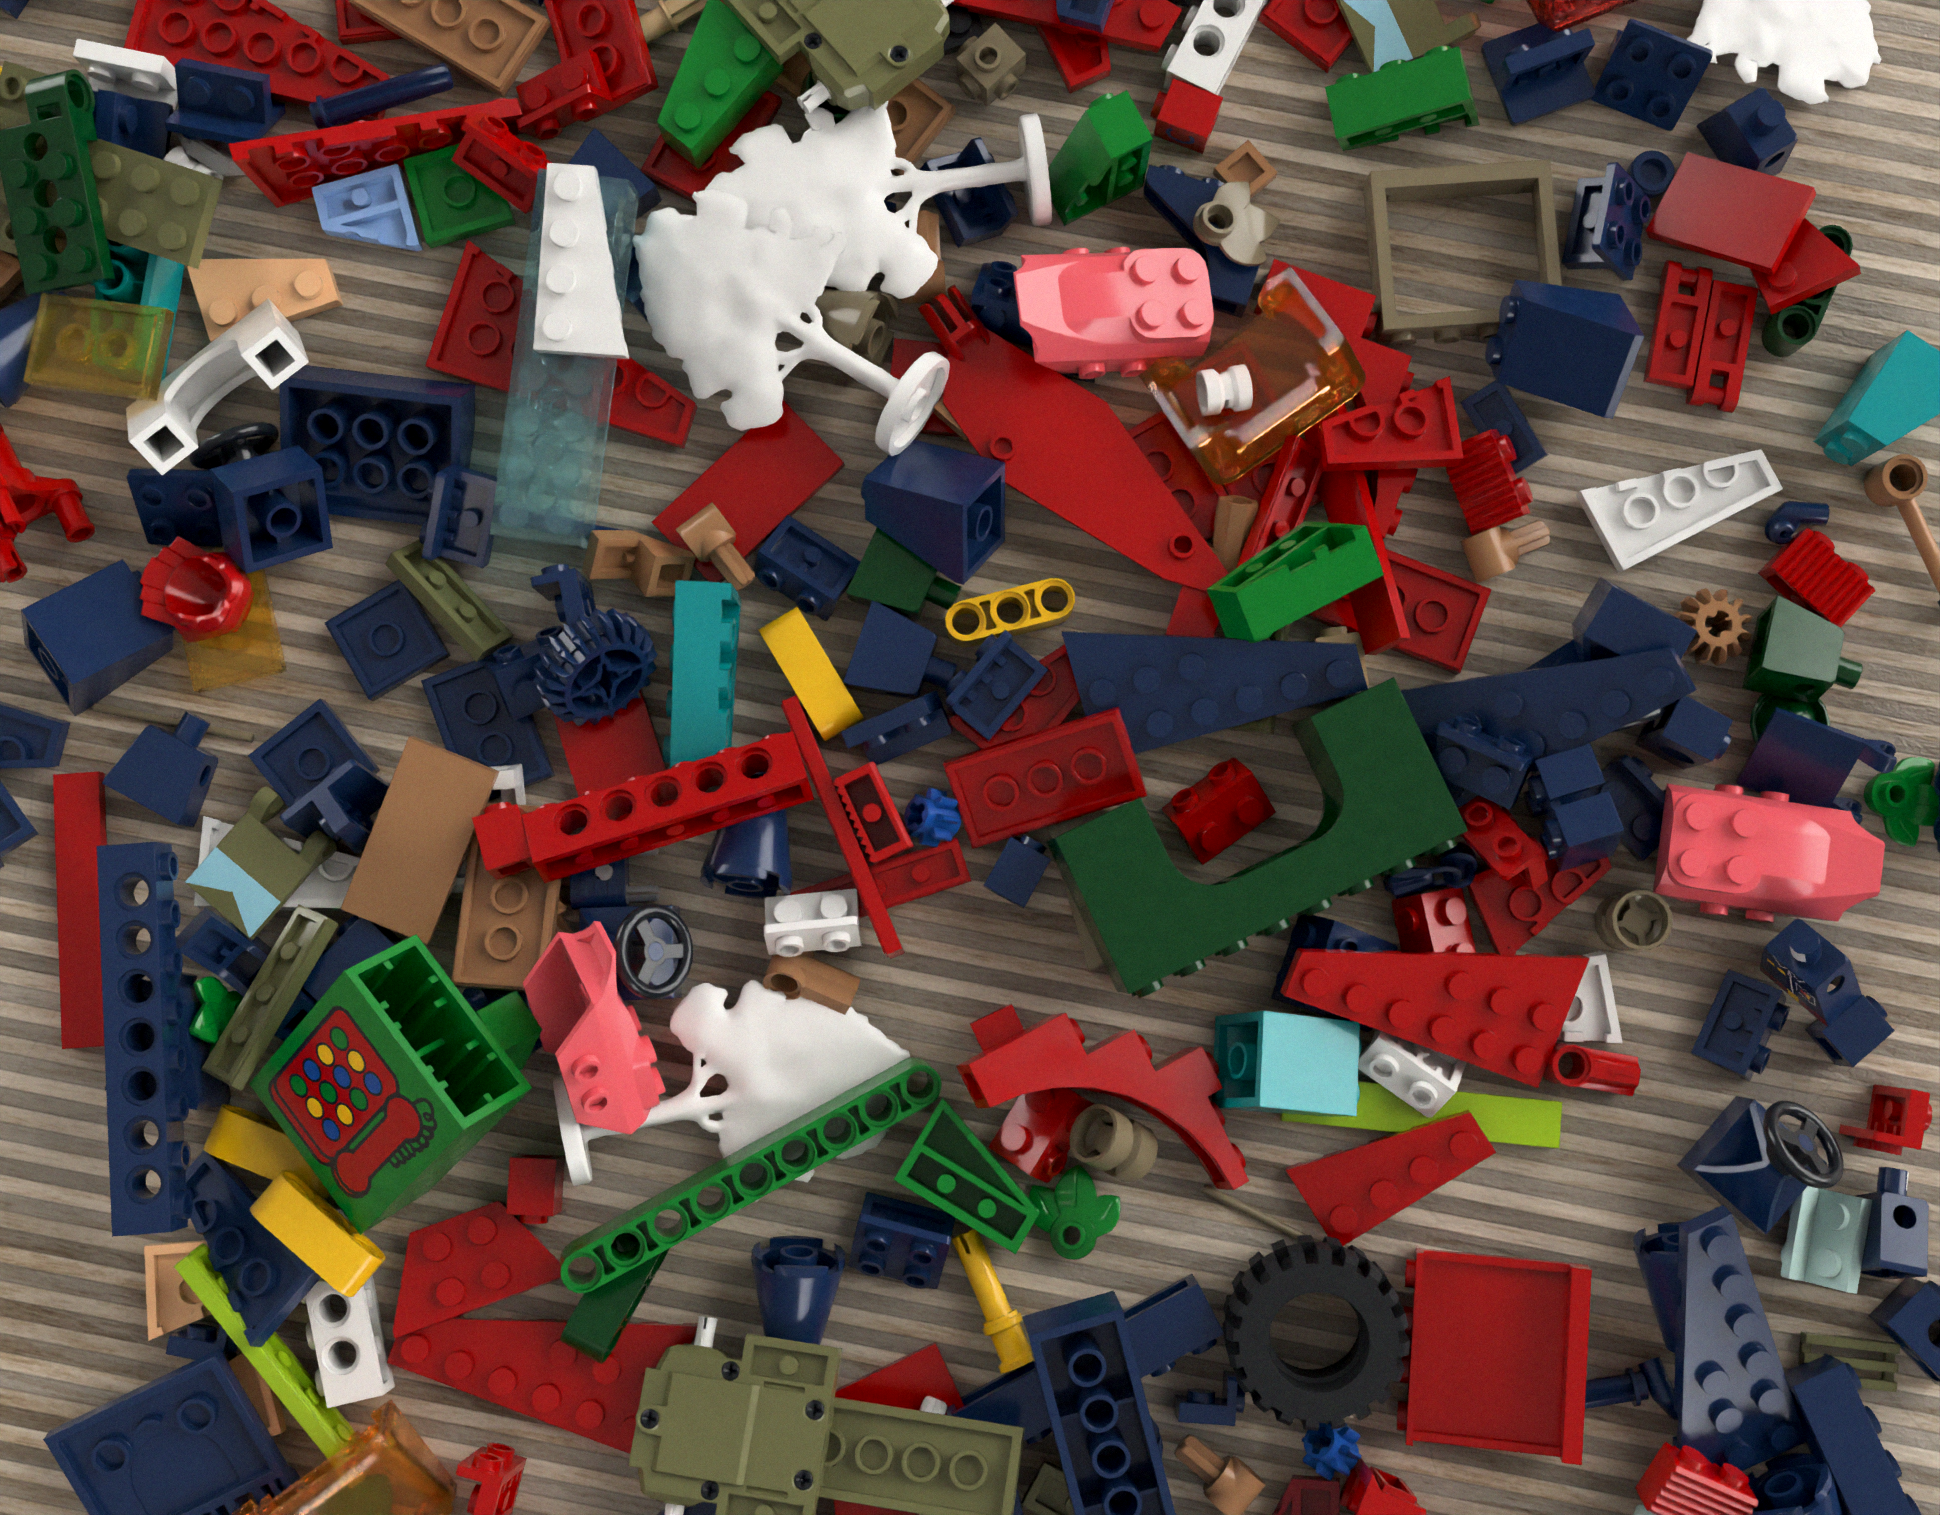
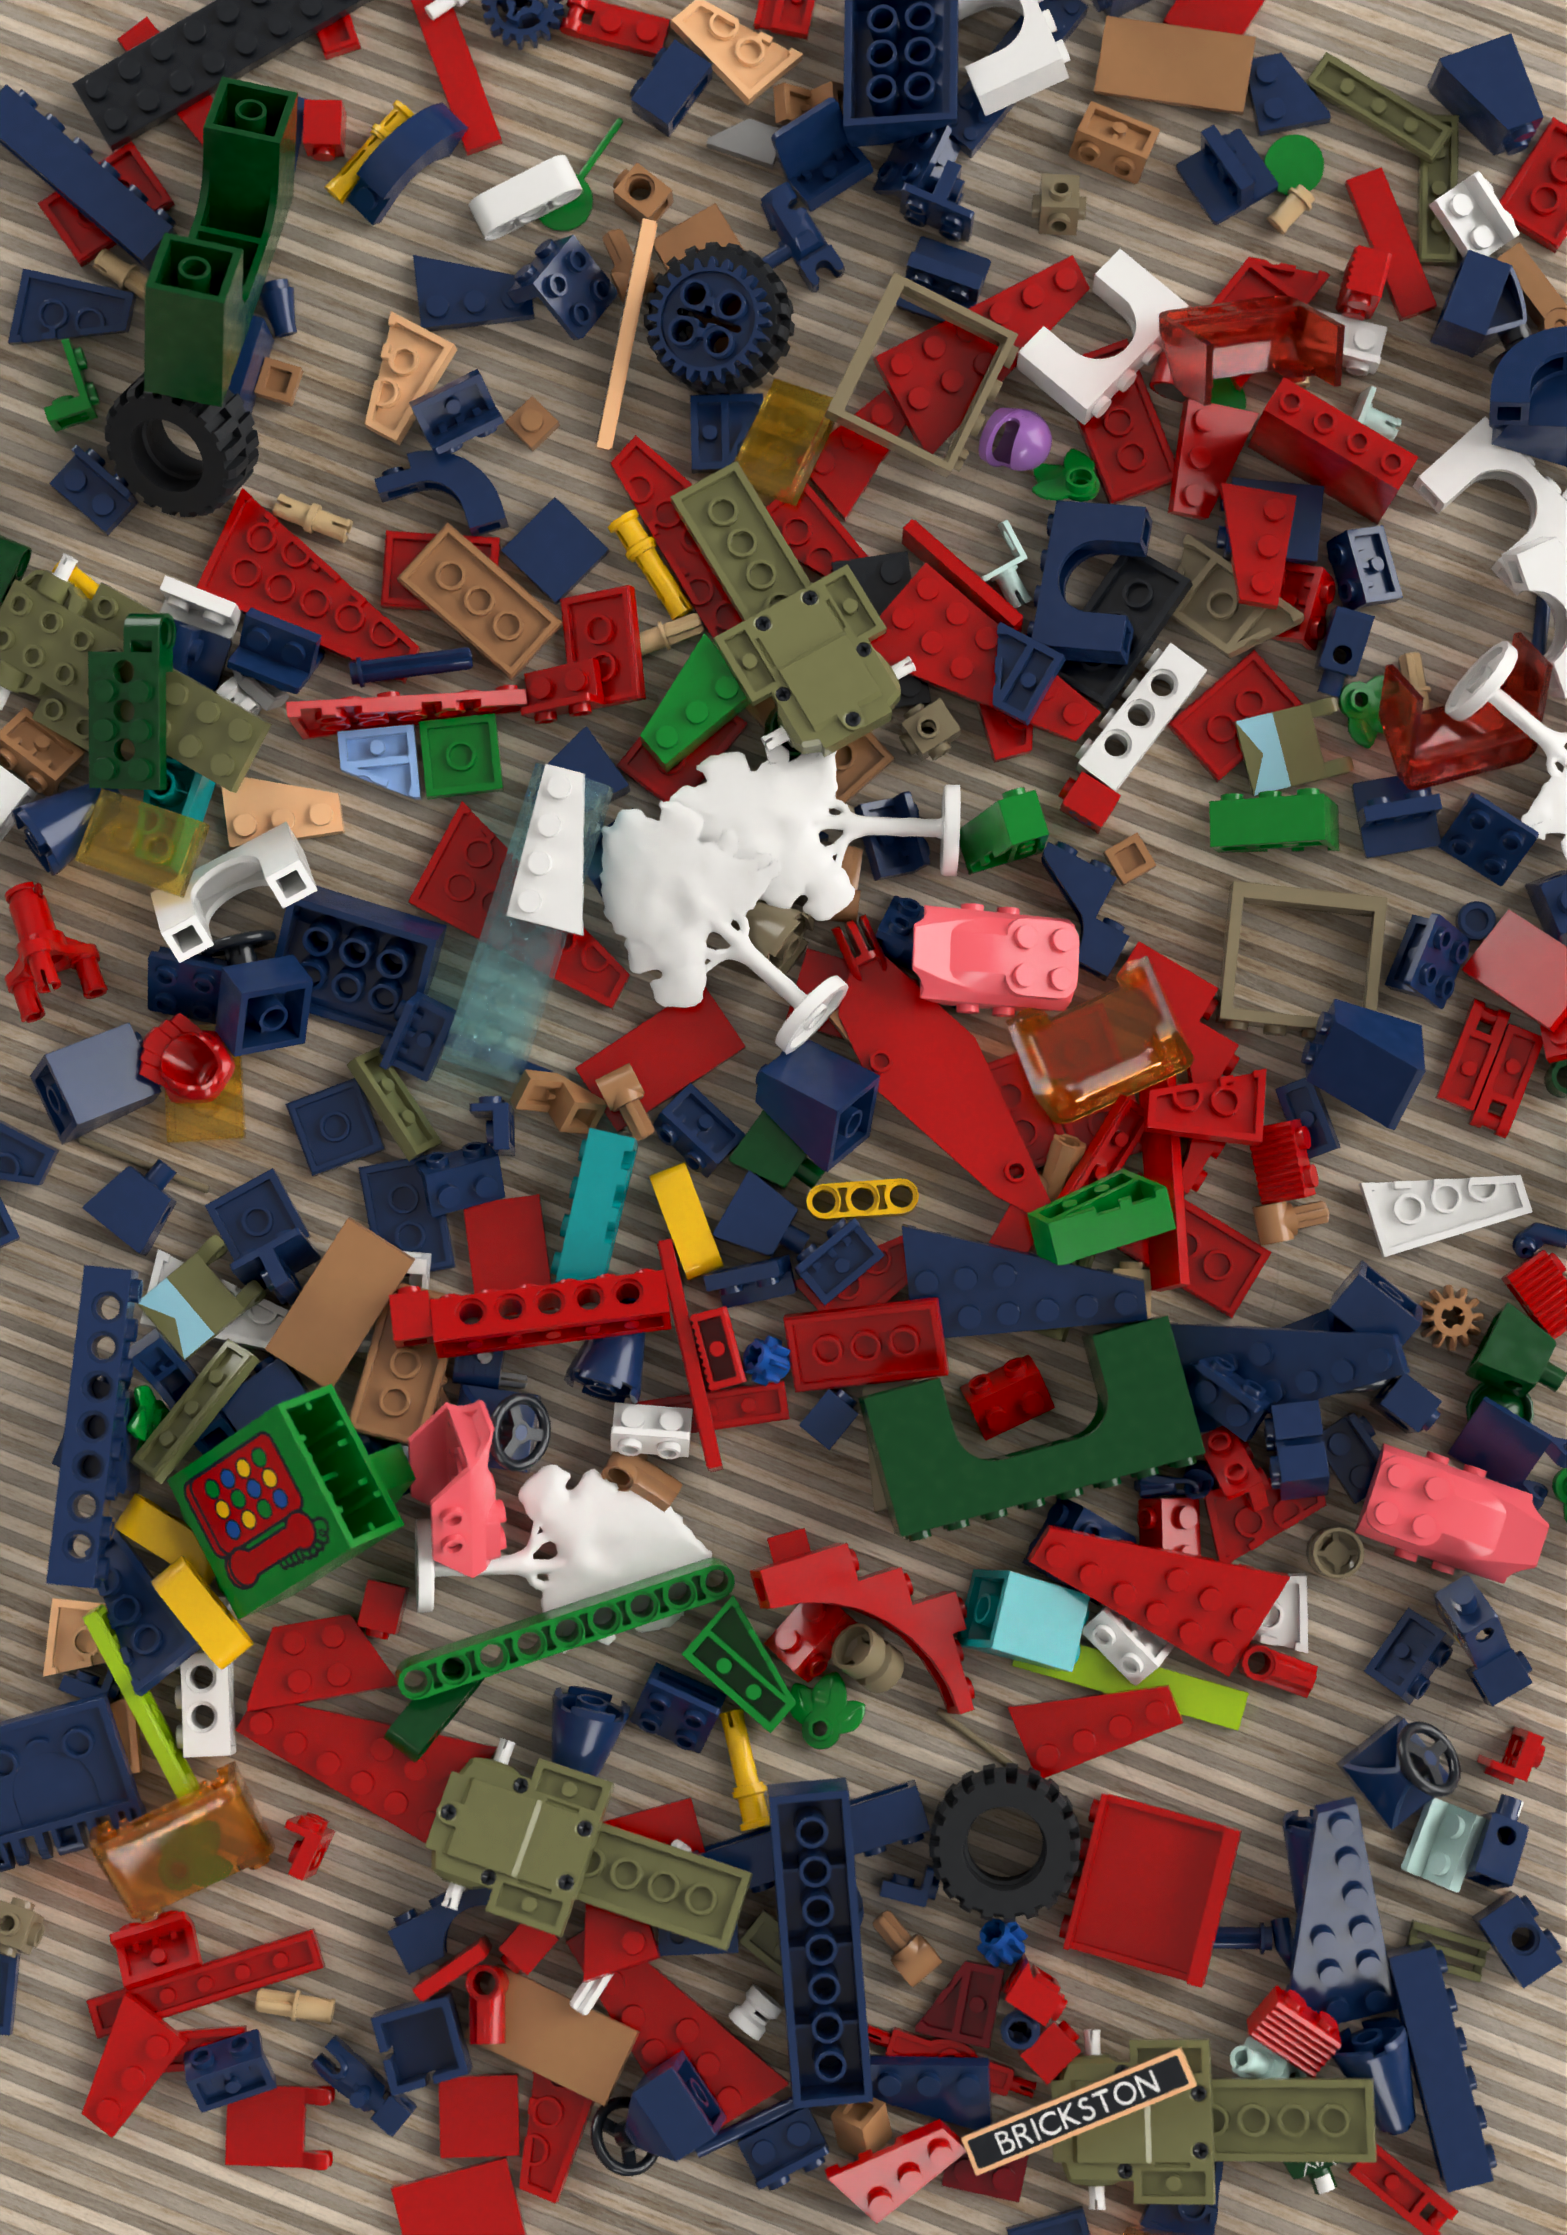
camera: 10 degrees right, 0 degrees up
(78, 832) = (44, 1309): red tile -> none
(500, 159) = (505, 743): red bracket -> none
(595, 667) = (509, 1186): dark blue gear -> none
(1227, 390) = (1079, 1047): white wheel -> none
(1240, 224) = (1115, 906): dark tan plate -> none

